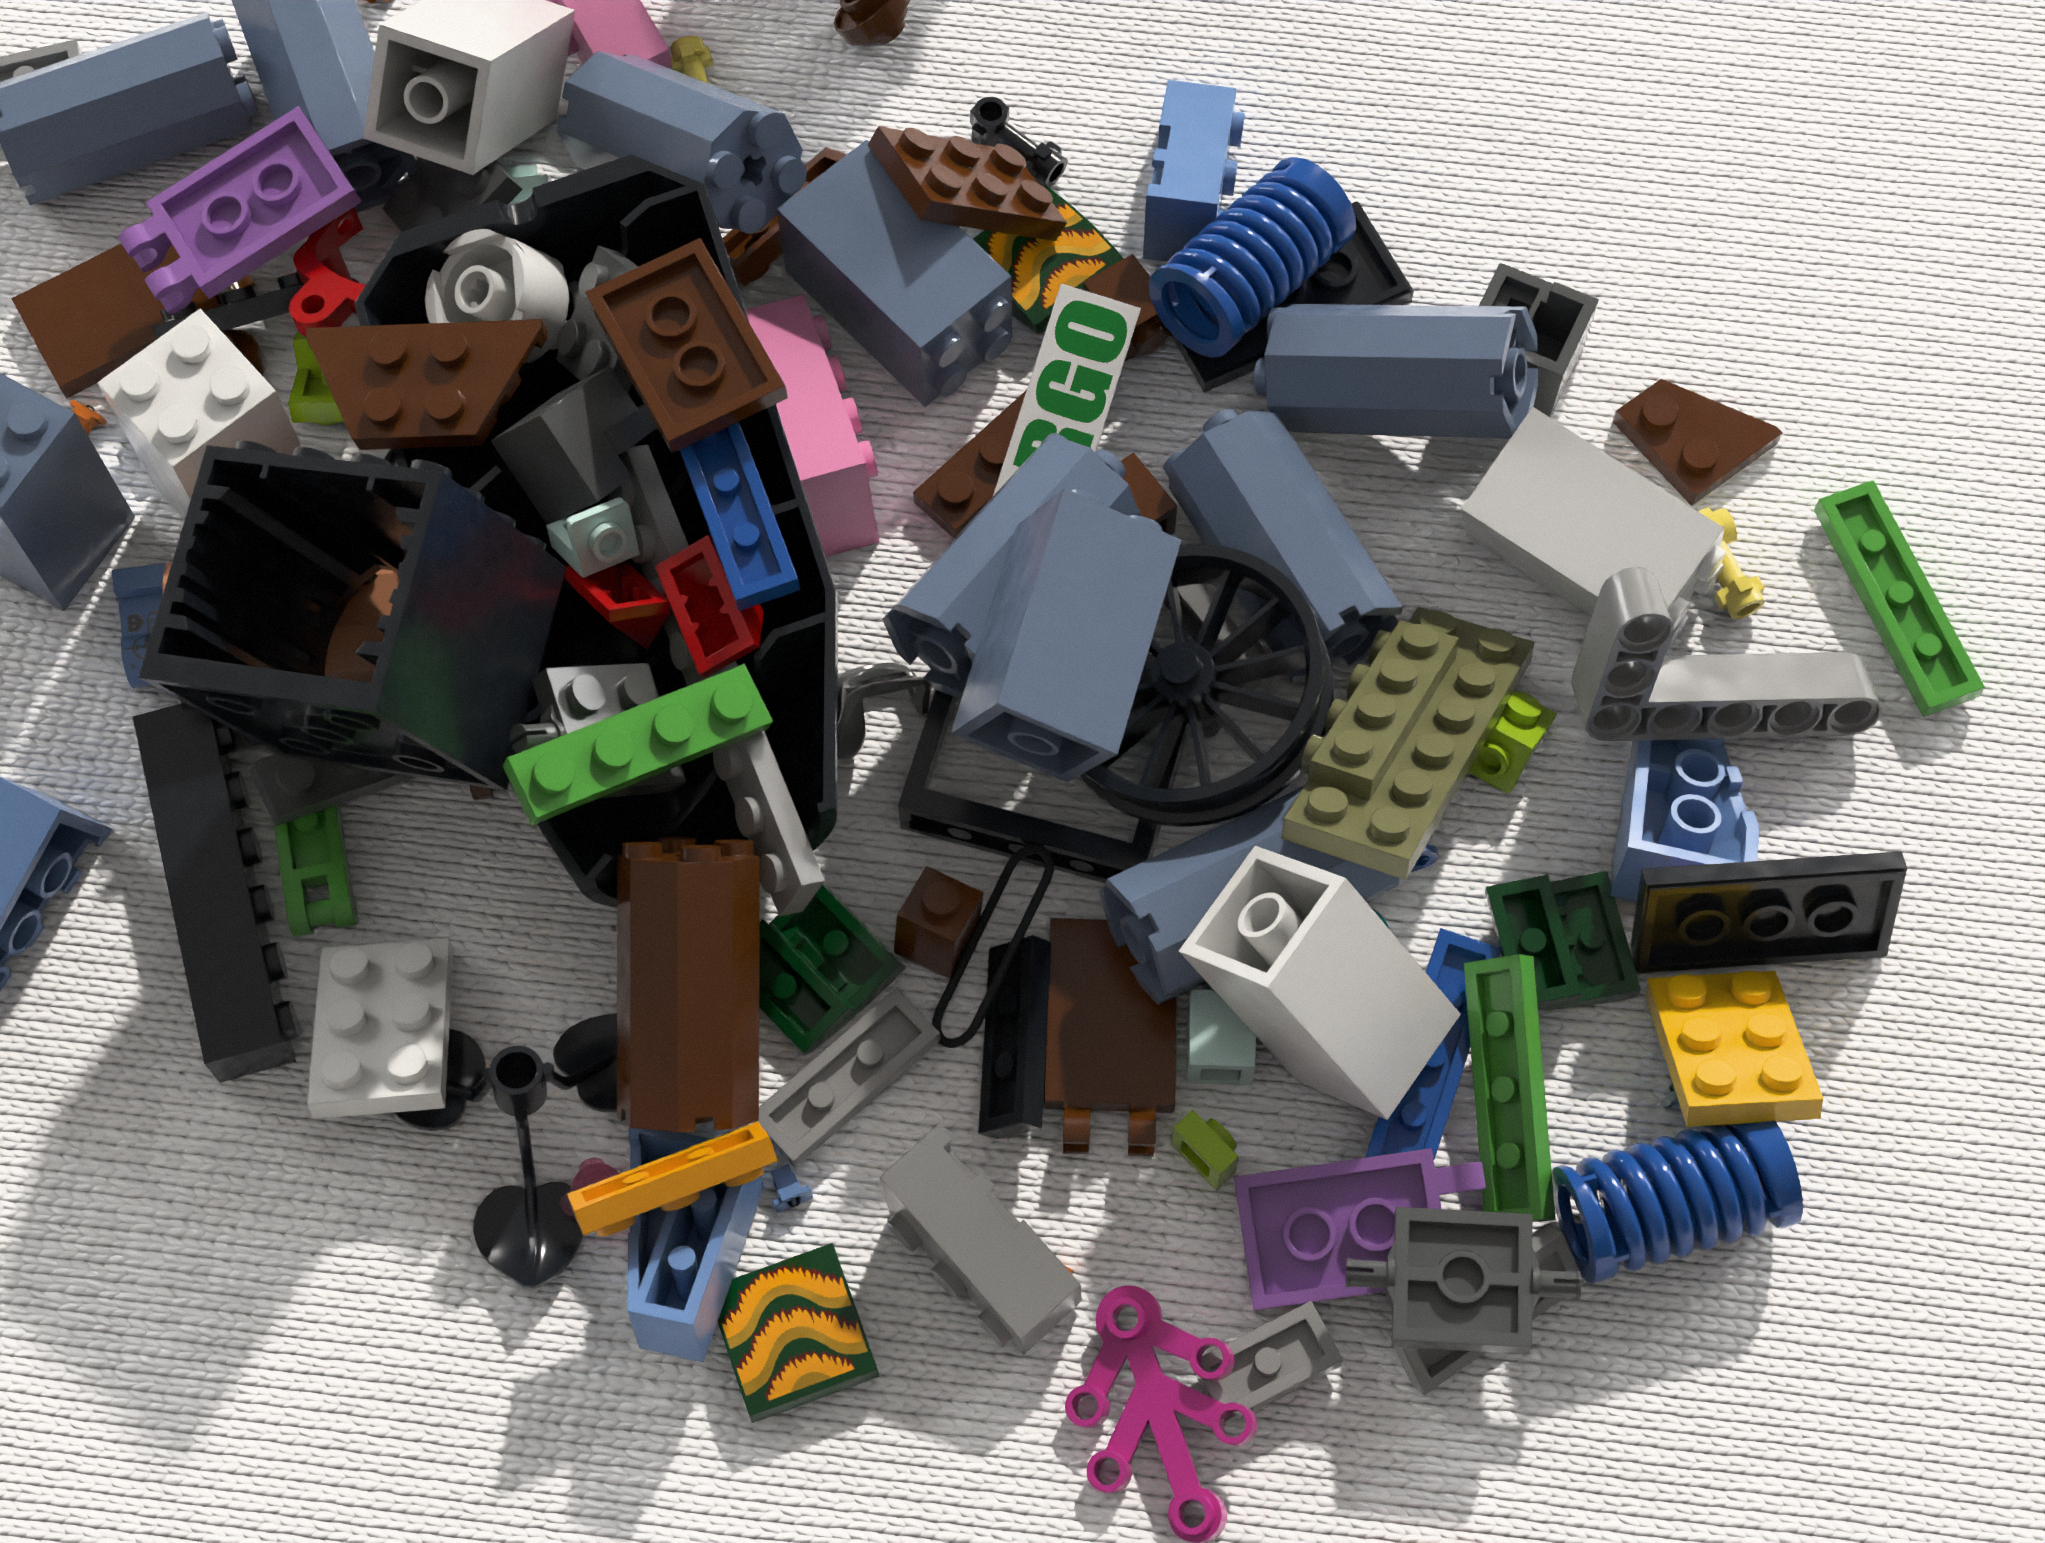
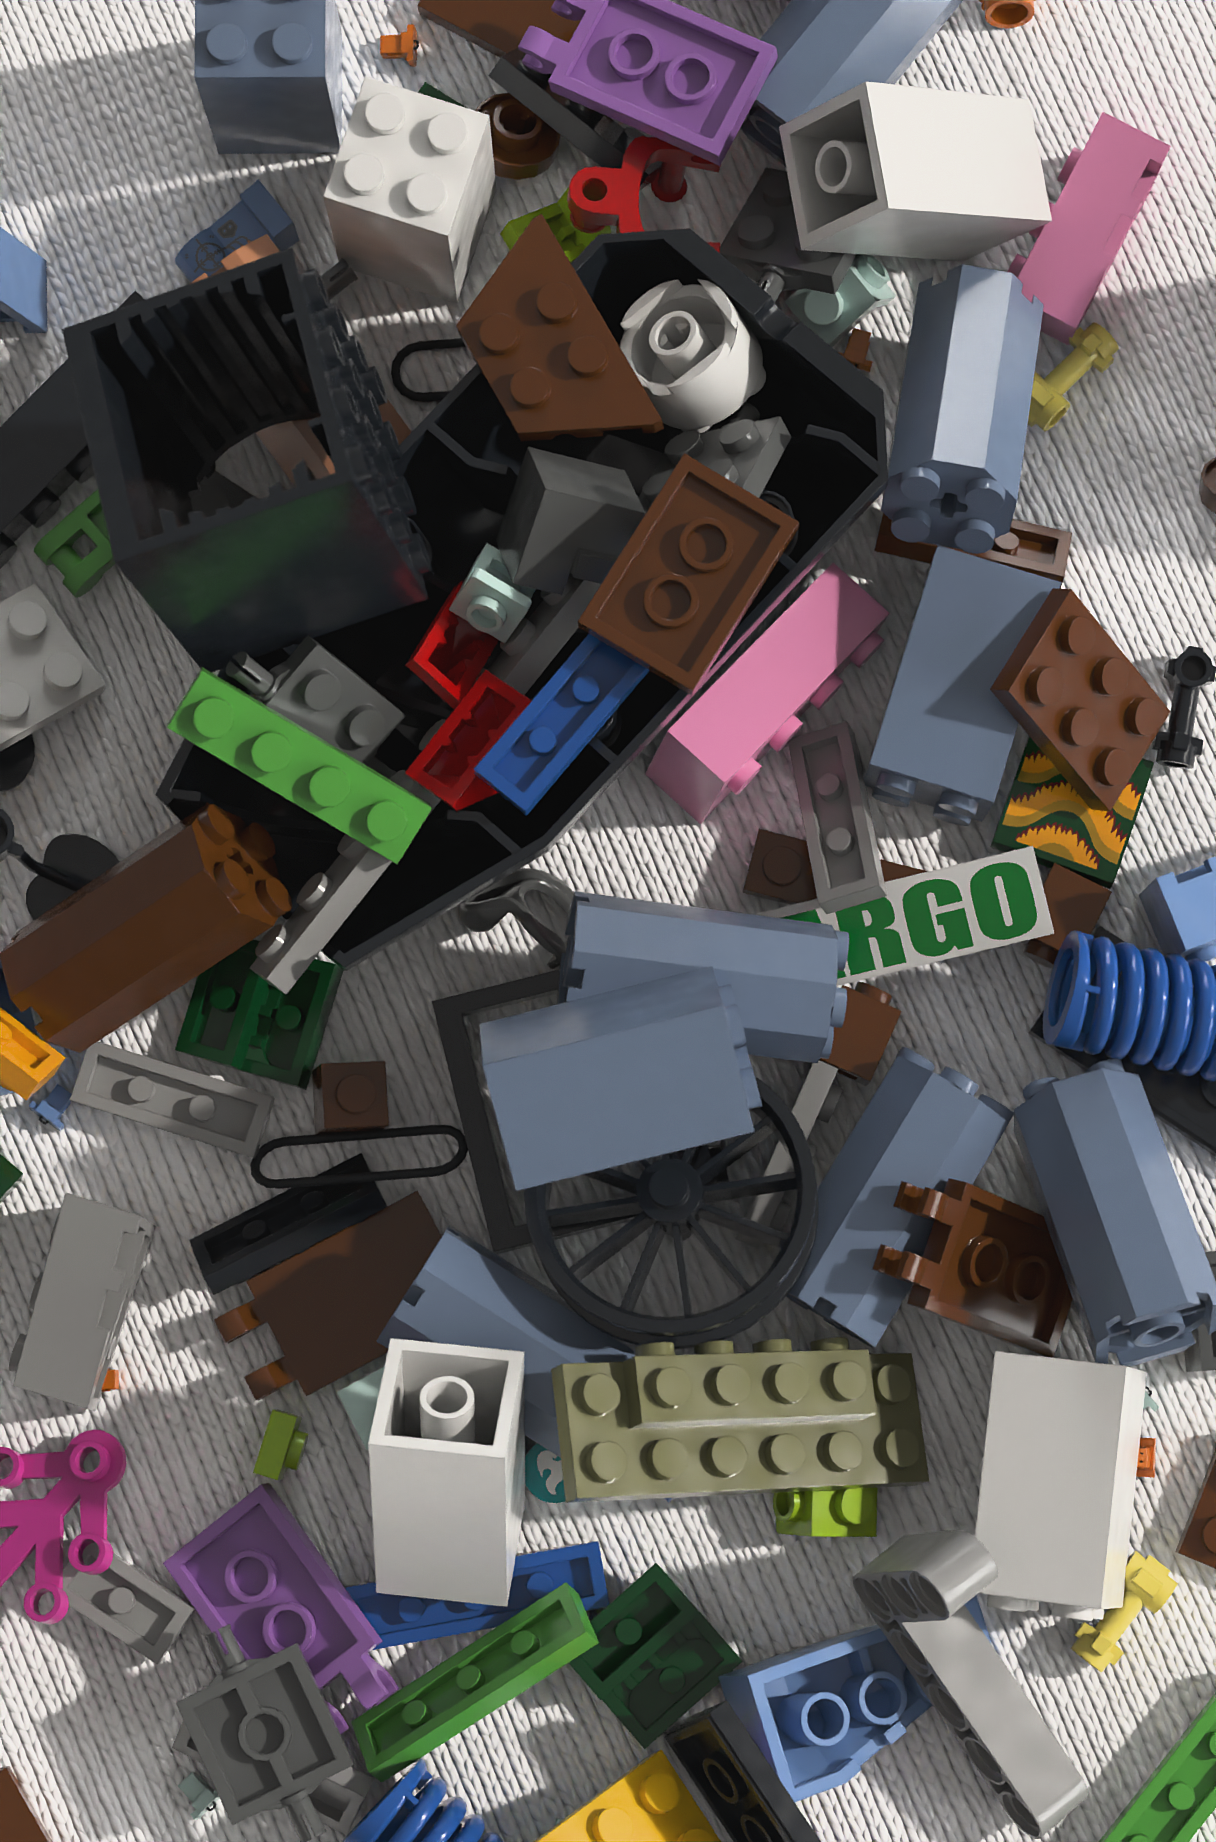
camera: 60 degrees right, 15 degrees up
(945, 419) = (836, 818): none -> light grey plate
(1384, 488) = (983, 1266): none -> reddish brown tile
(1479, 1395) = (199, 1793): none -> light aqua piece

